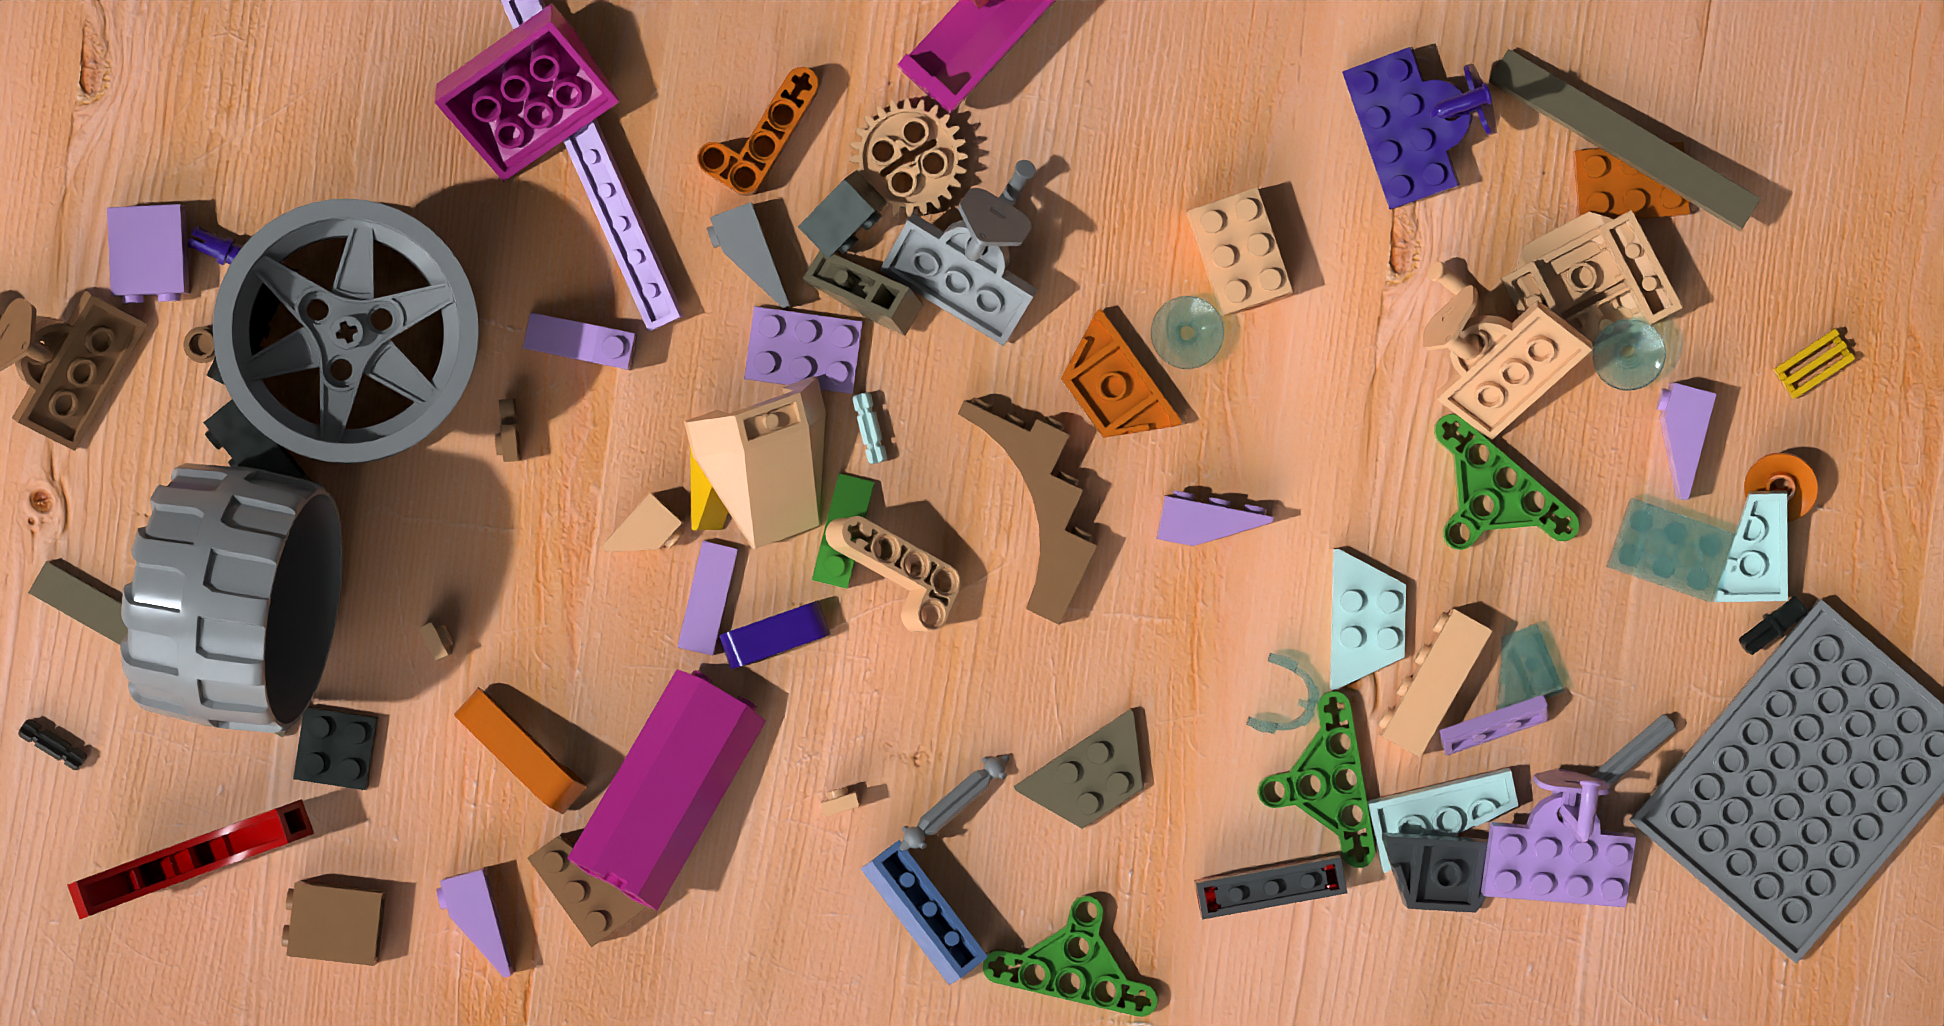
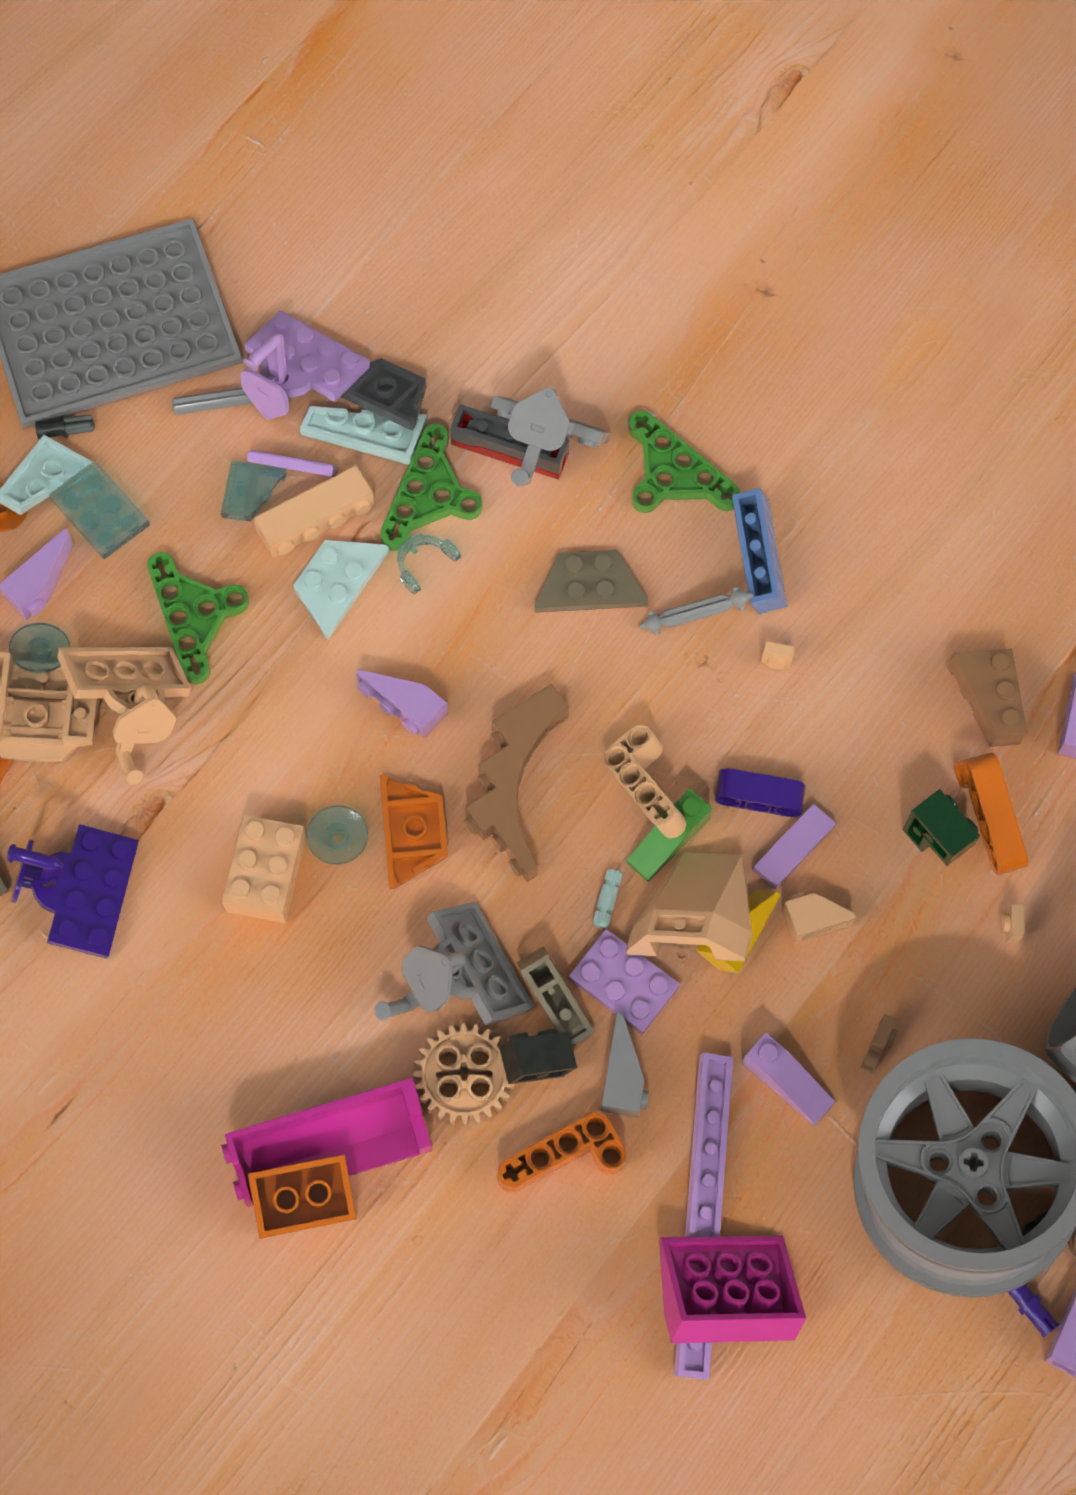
camera: 150 degrees left, 20 degrees down
(560, 694) = (942, 827): none -> dark green brick
(667, 788) = (899, 722): dark pink panel -> none
(1236, 916) = (542, 425): none -> light grey plate

